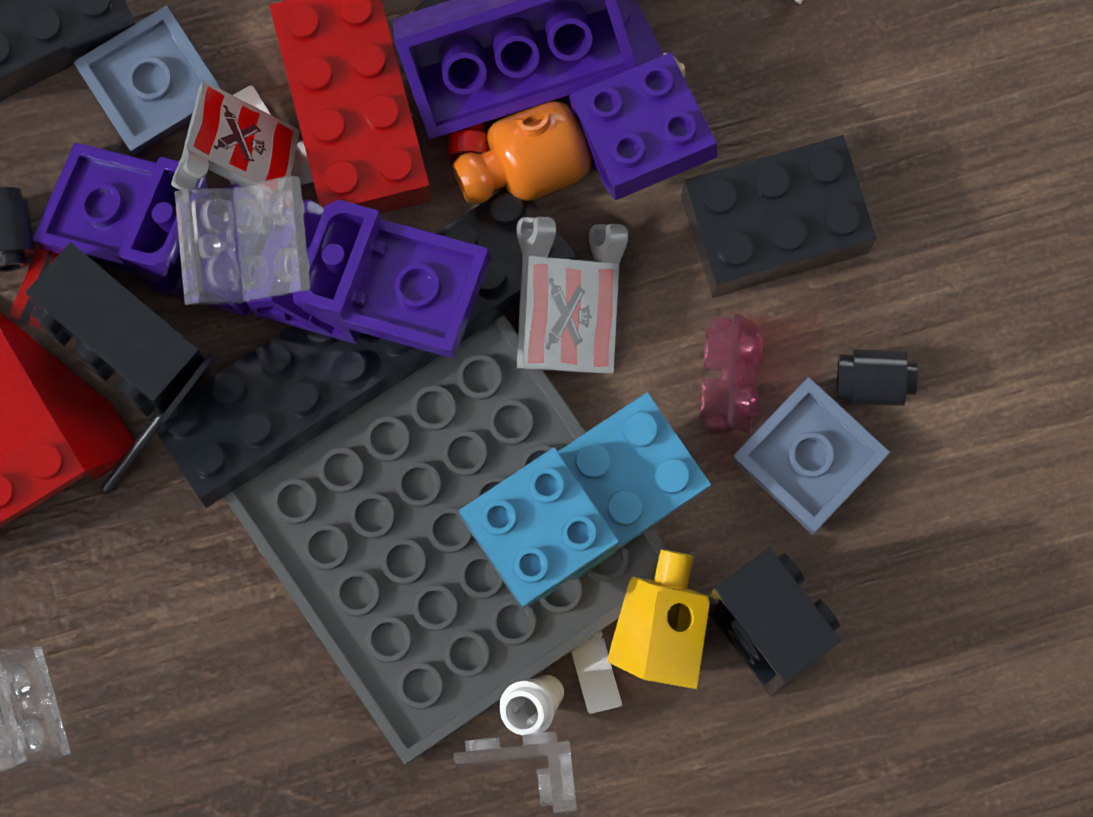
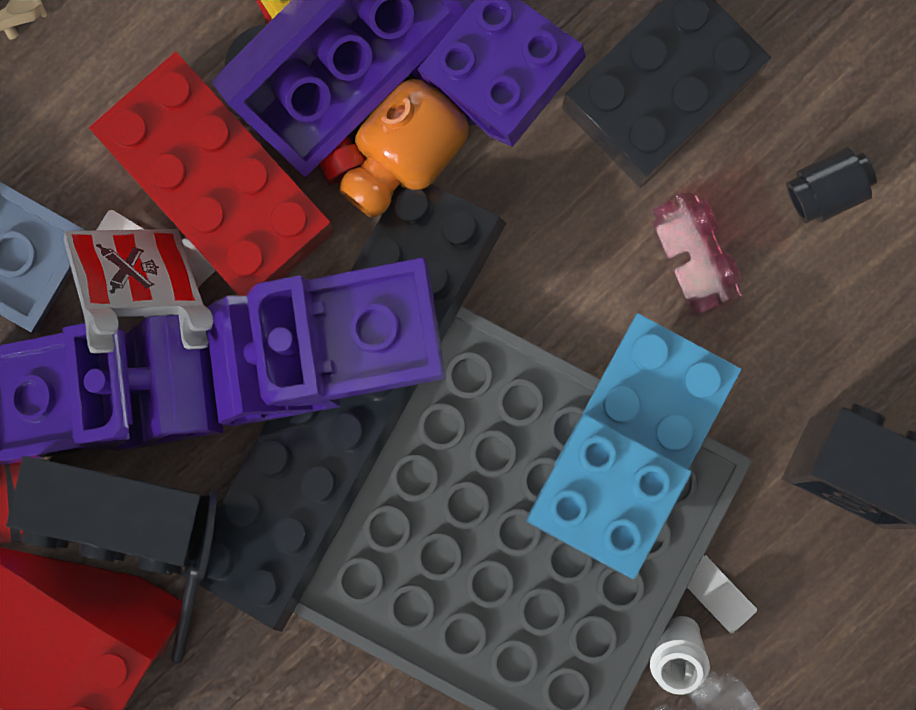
camera: 25 degrees left, 5 degrees up
(242, 242) = (188, 372): clear bracket -> none
(568, 303) = (515, 264): light grey flag -> none
(662, 625) = (765, 524): yellow torso -> none
(810, 455) = (809, 290): sand blue plate -> none

